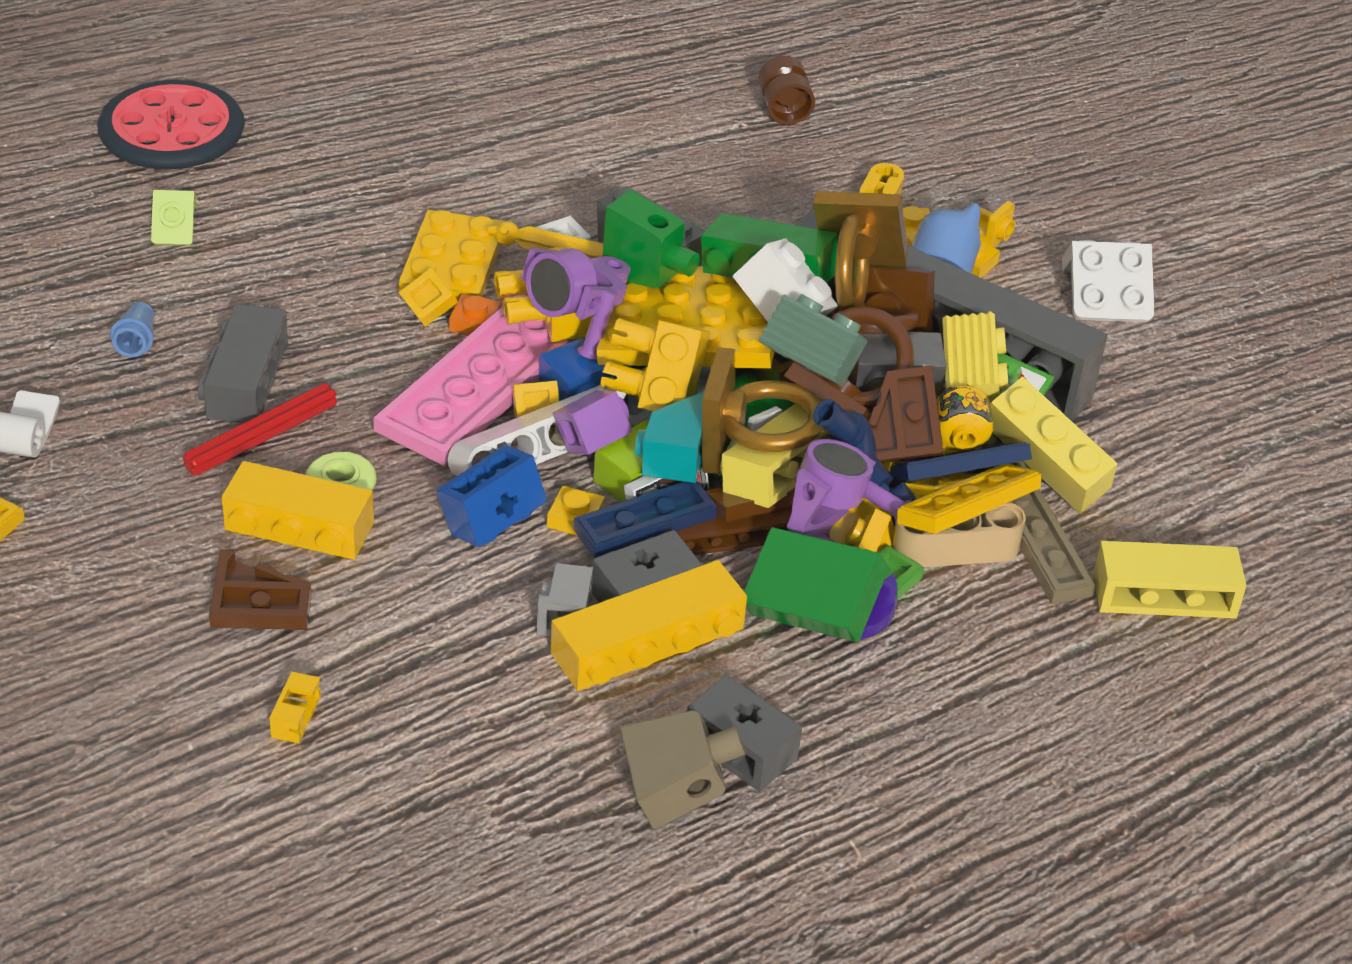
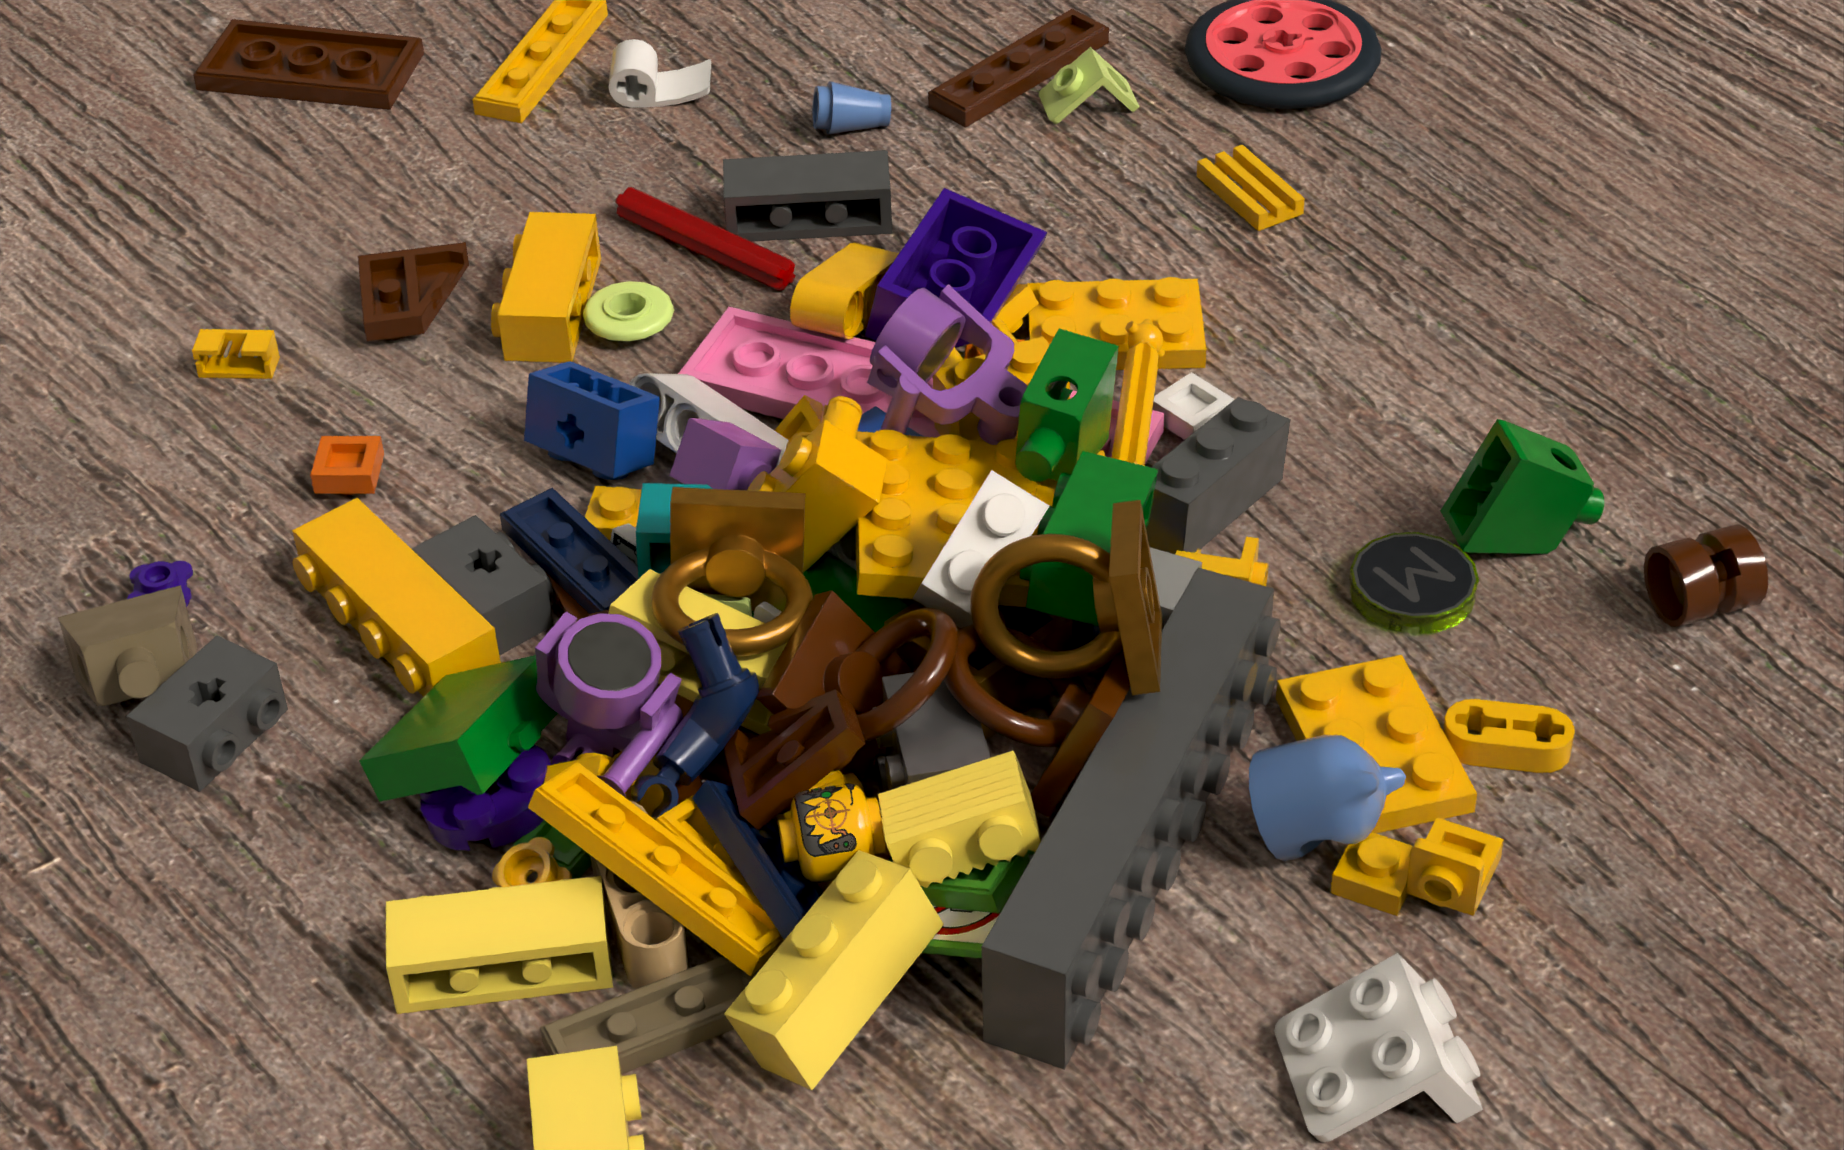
camera: 85 degrees right, 0 degrees up
(116, 245) = (1017, 68): none -> reddish brown tile
(326, 172) = (1257, 184): none -> yellow tile
(389, 352) = (840, 291): none -> yellow beam
(399, 304) = (961, 246): none -> dark purple slope
(474, 644) = (347, 465): none -> orange plate
(564, 595) = (425, 511): light grey brick -> none
(582, 764) = (161, 576): none -> dark purple plate
(712, 128) = (1520, 494): none -> green torso
(746, 193) = (1413, 582): none -> tile
(814, 340) = (860, 591): sand green brick -> none
(936, 578) = (529, 858): none -> yellow plate
(988, 601) = (498, 944): none -> light yellow brick

